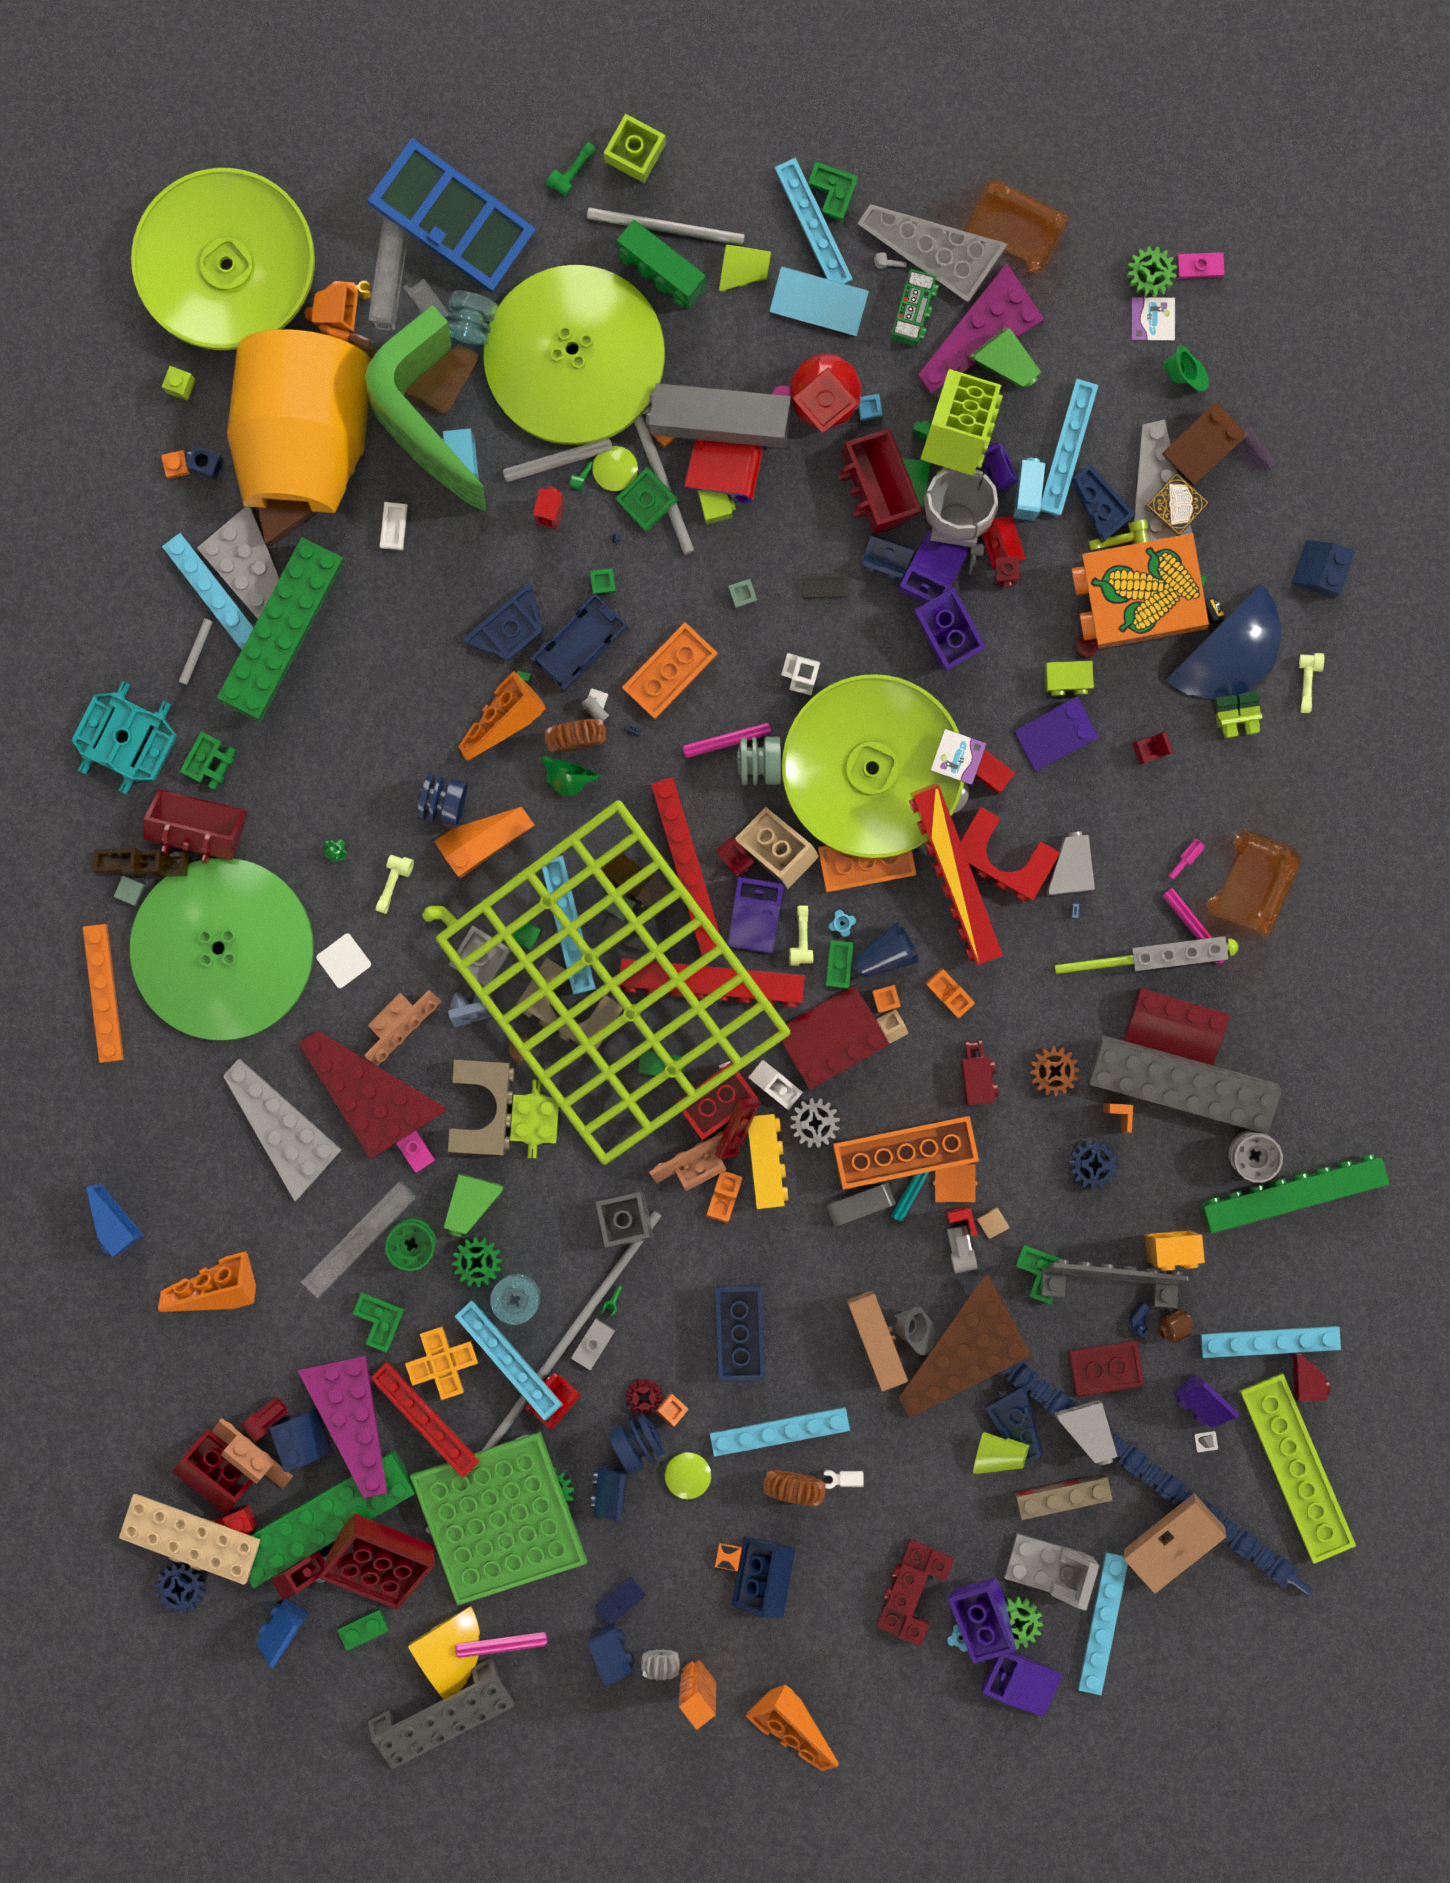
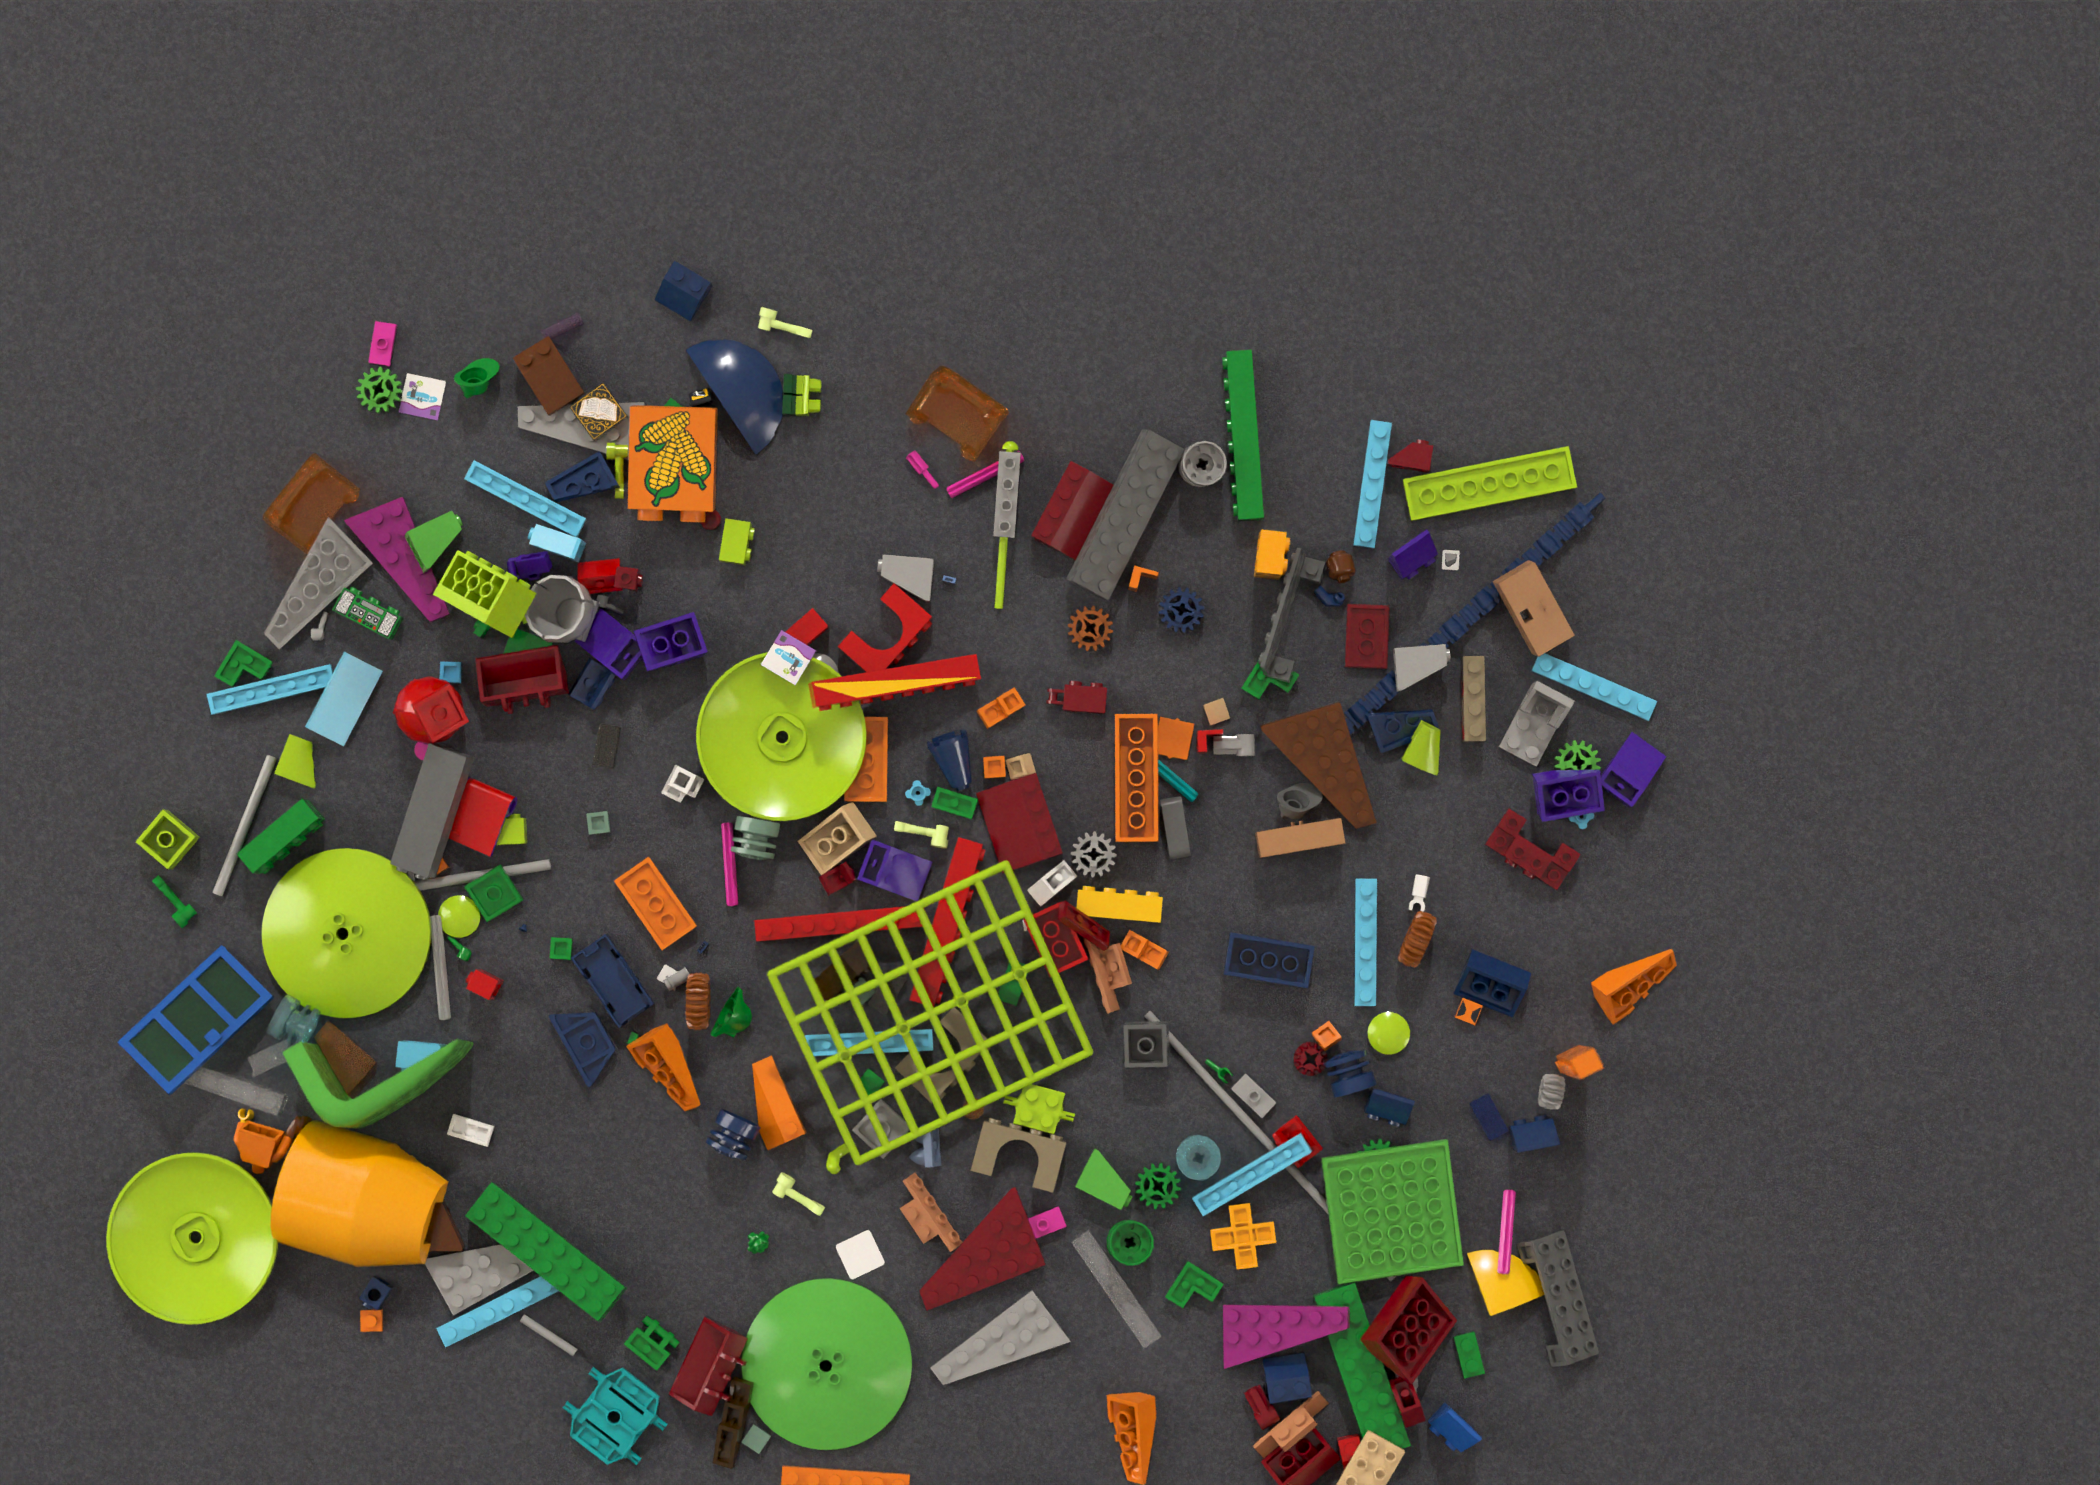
camera: 75 degrees left, 0 degrees up
(178, 383) = (298, 1302): lime brick -> none
(425, 1420) = (1290, 1260): red tile -> none
(1056, 734) = (785, 564): dark purple slope -> none
(1152, 748) = (815, 479): dark red bracket -> none

